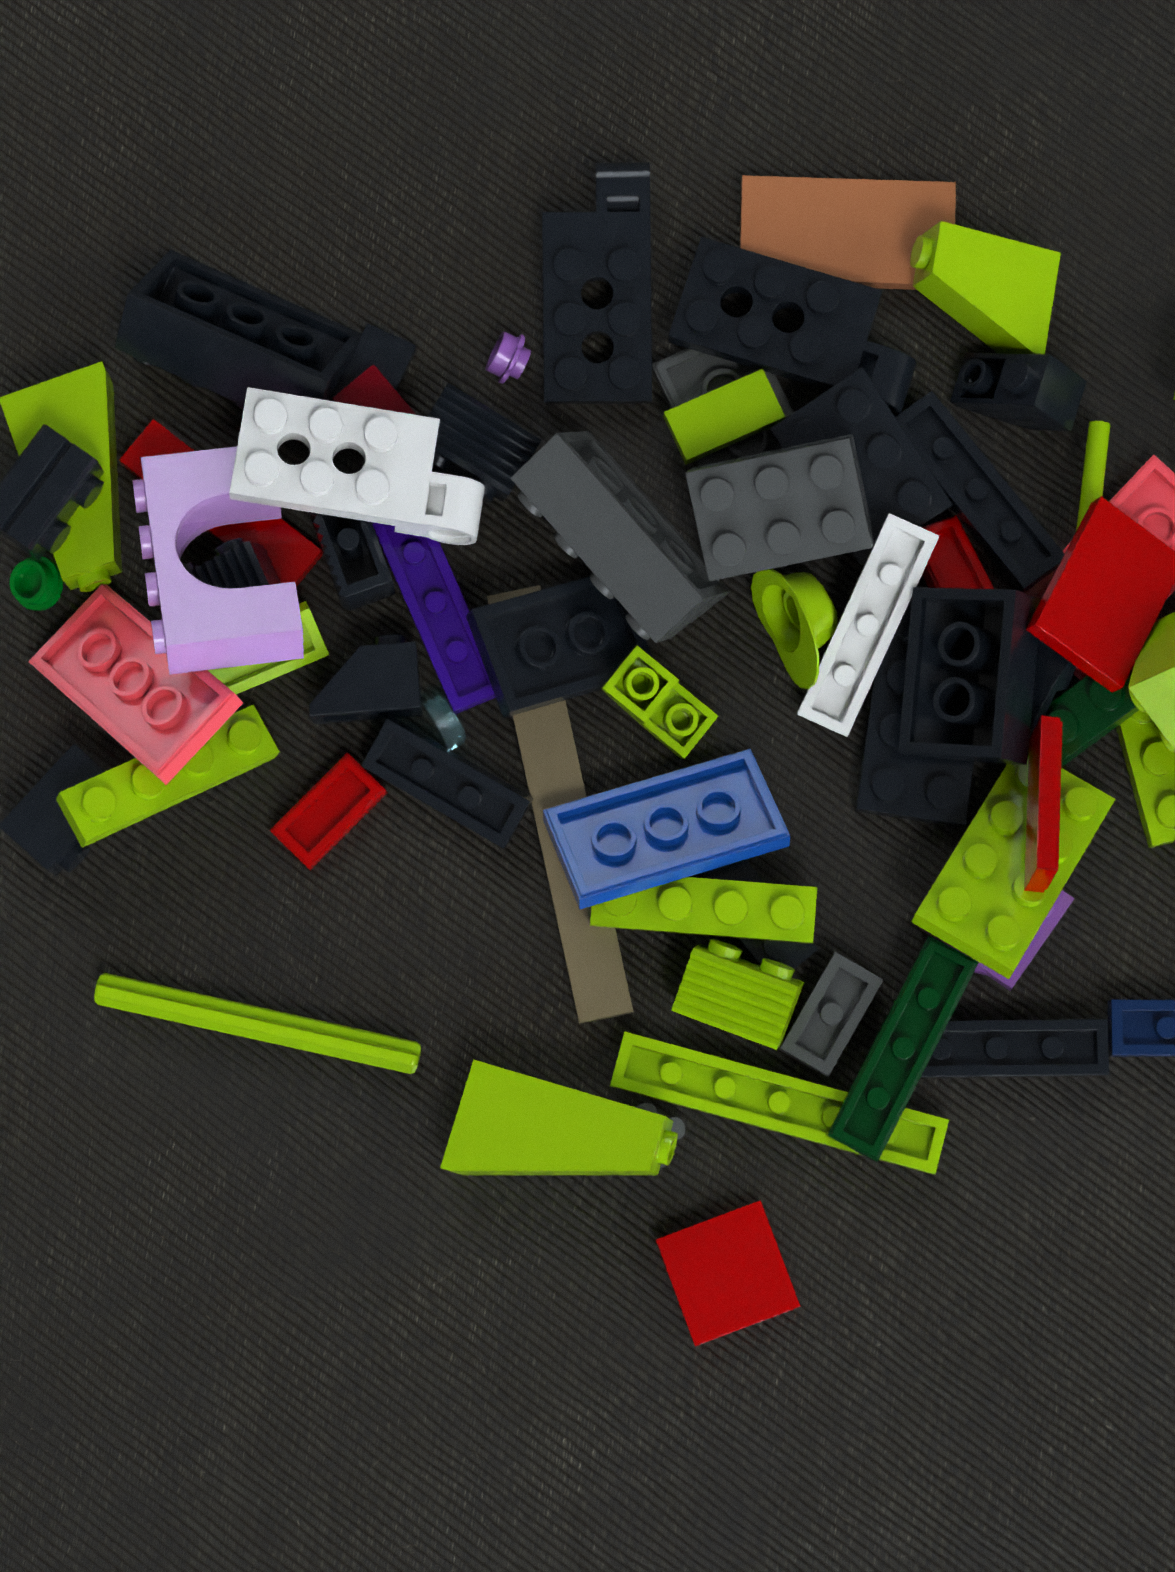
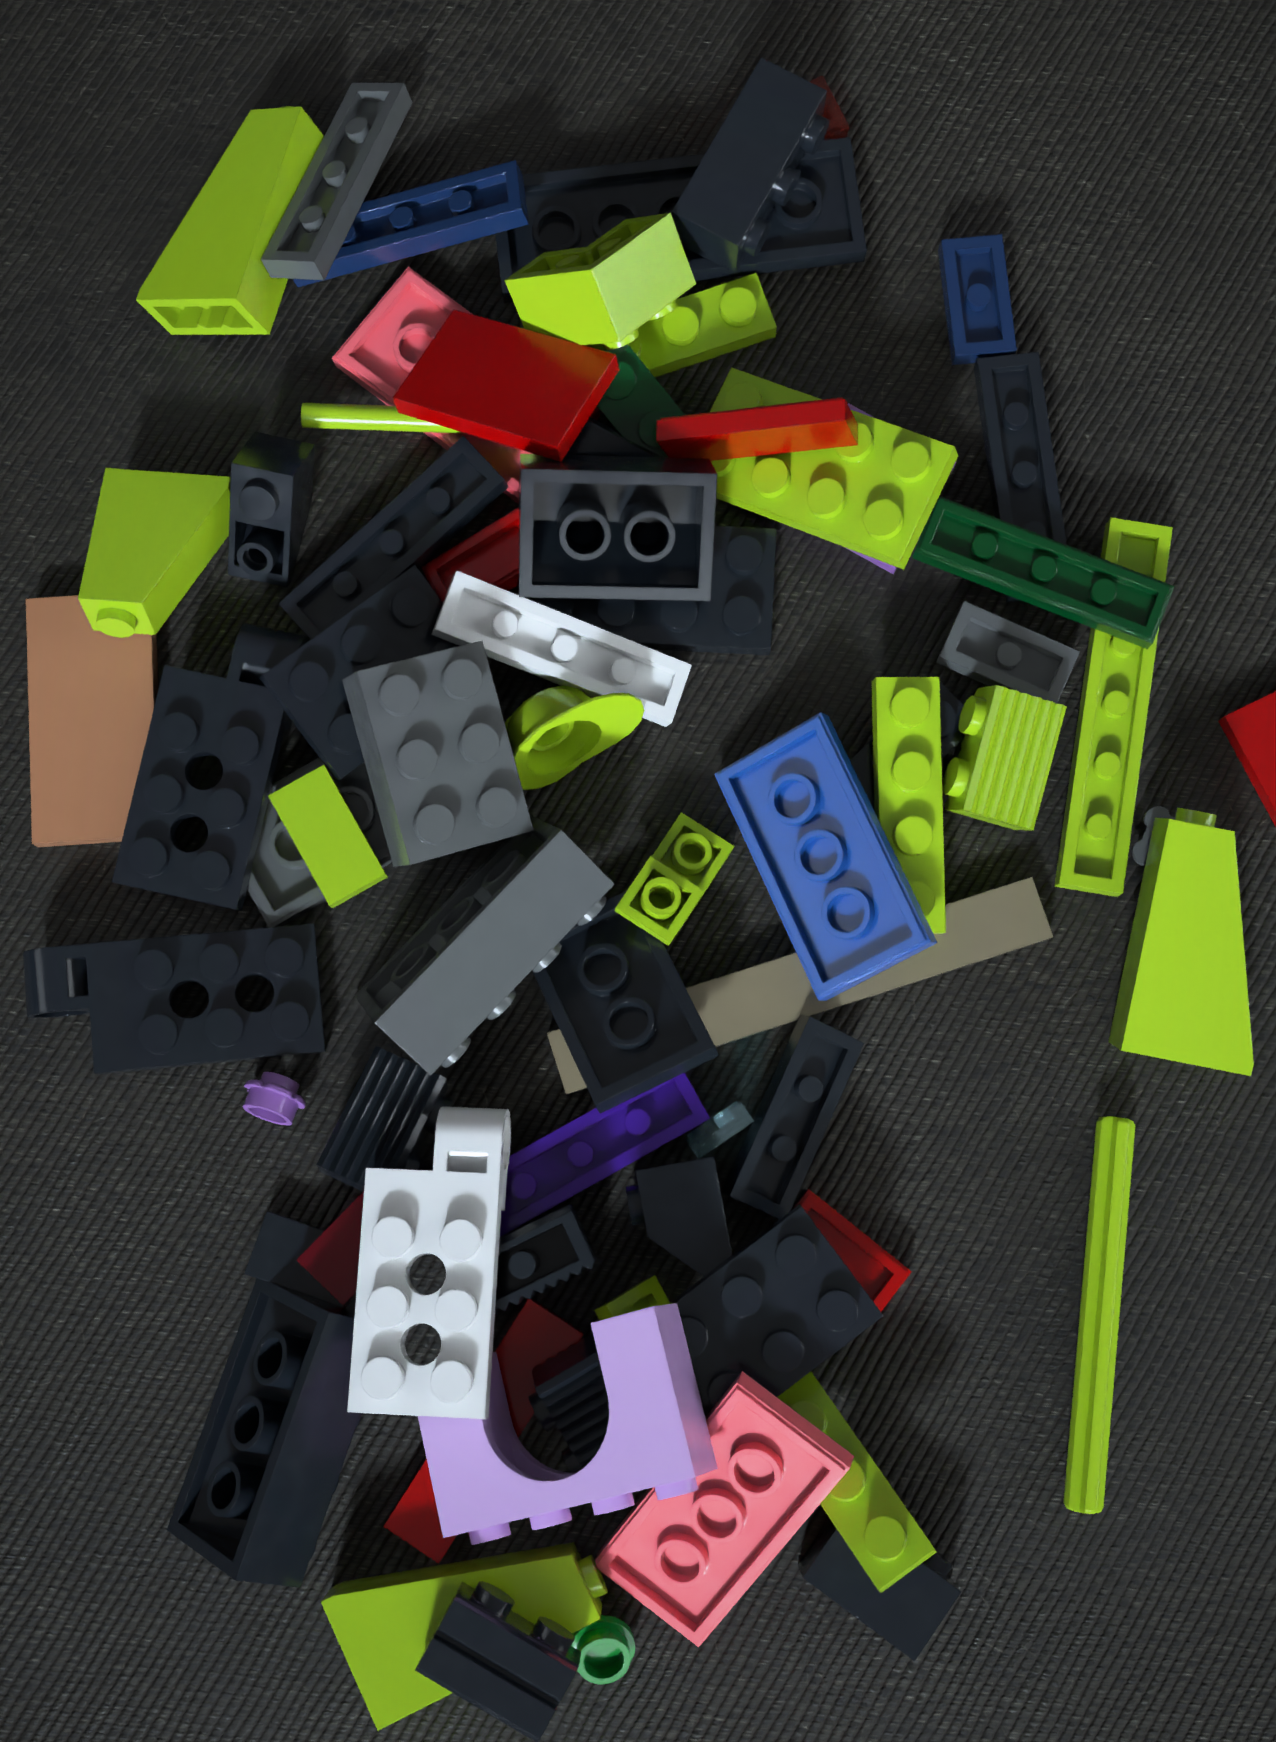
camera: 90 degrees left, 0 degrees up
(289, 739) = (772, 1310): none -> black plate

